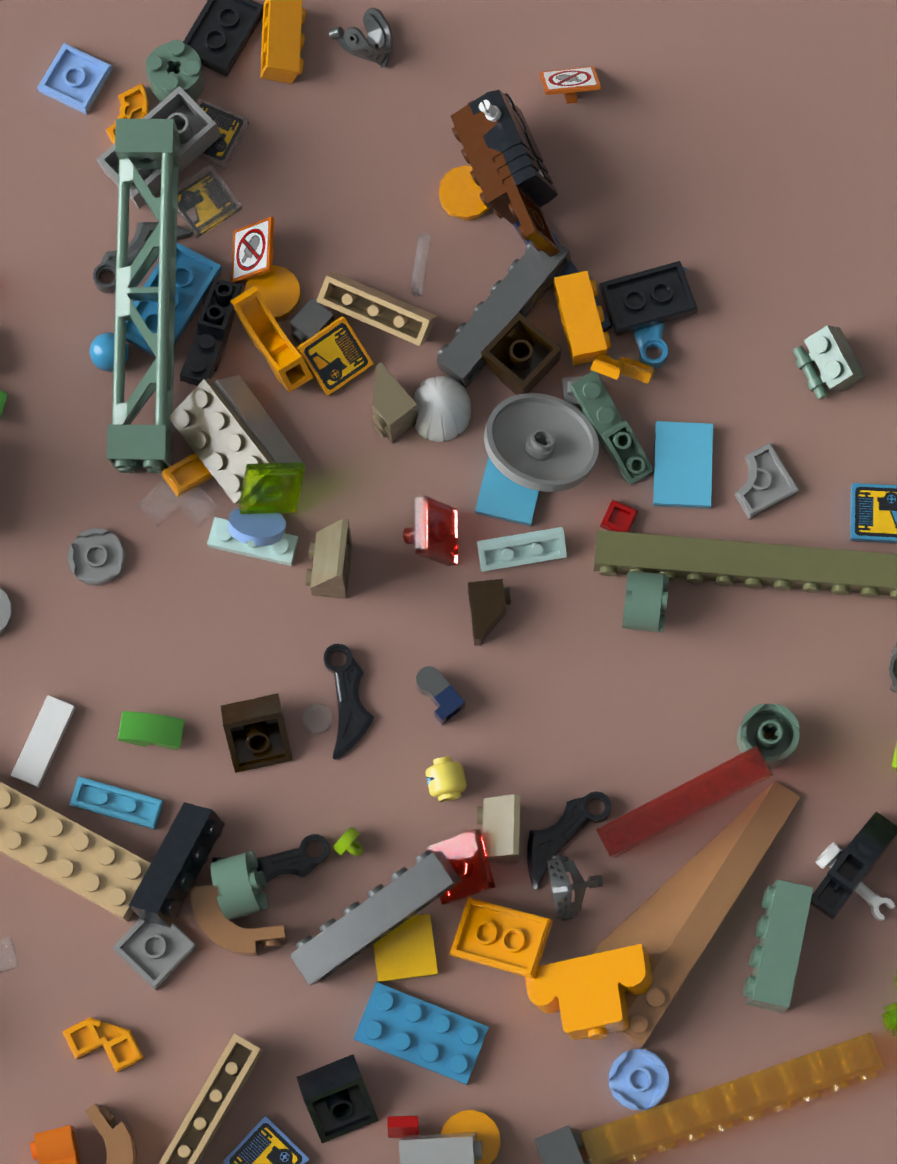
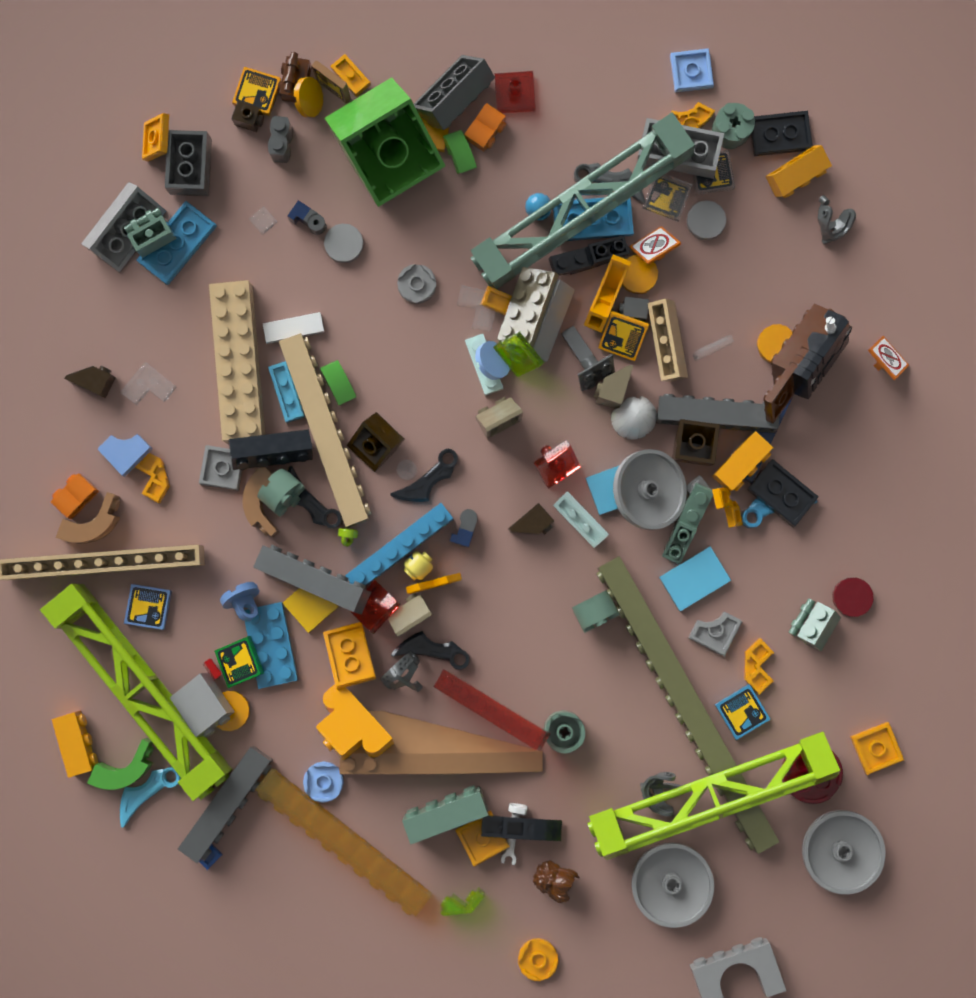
camera: 55 degrees right, 10 degrees up
(50, 1059) = (125, 453): none -> medium blue tile
(199, 785) = (324, 431): none -> tan brick
(263, 176) = (706, 220): none -> light grey tile
(337, 1098) = (204, 623): black slope -> none
(341, 1026) = (240, 598): none -> medium blue tile
(351, 414) = (594, 370): none -> dark grey piece
(407, 779) = (401, 546): none -> dark azure brick
(416, 1085) = (239, 662): none -> tile
(484, 766) = (433, 583): none -> light orange tile
(618, 517) = (637, 563): red tile -> none
(824, 300) = (853, 597): none -> dark red tile
(842, 470) = (754, 658): none -> light orange tile
(844, 934) = (479, 847): none -> light orange tile

